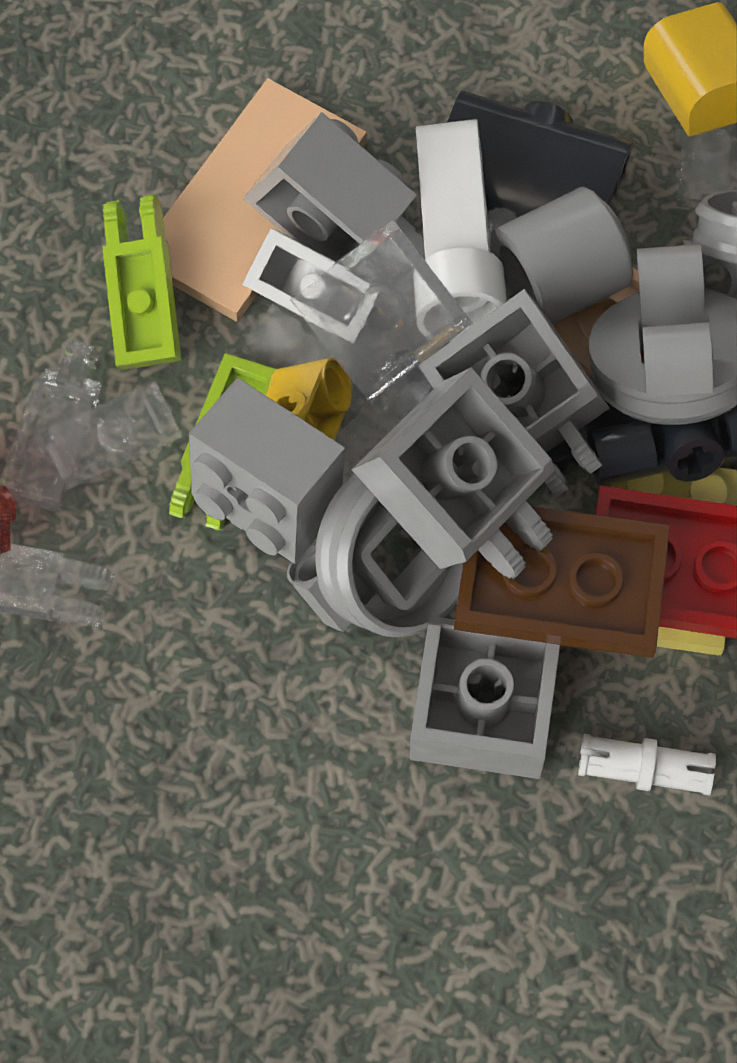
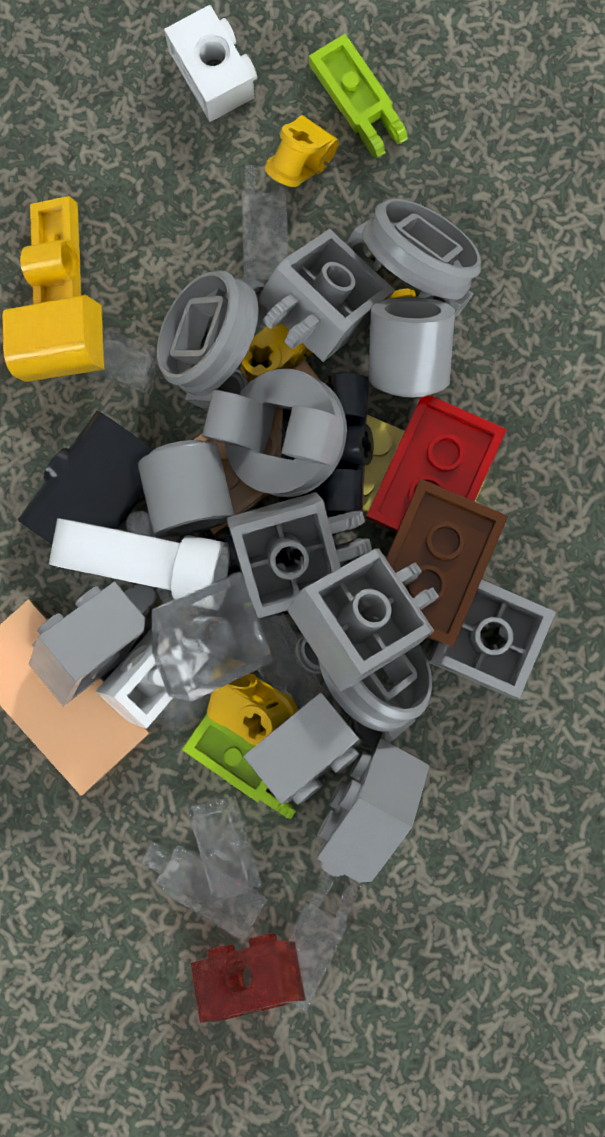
camera: 75 degrees left, 15 degrees up
(140, 288) = (110, 799): lime hinge -> none
(208, 582) = (371, 812): none -> light grey hinge
(647, 764) = (554, 542): white pin -> none

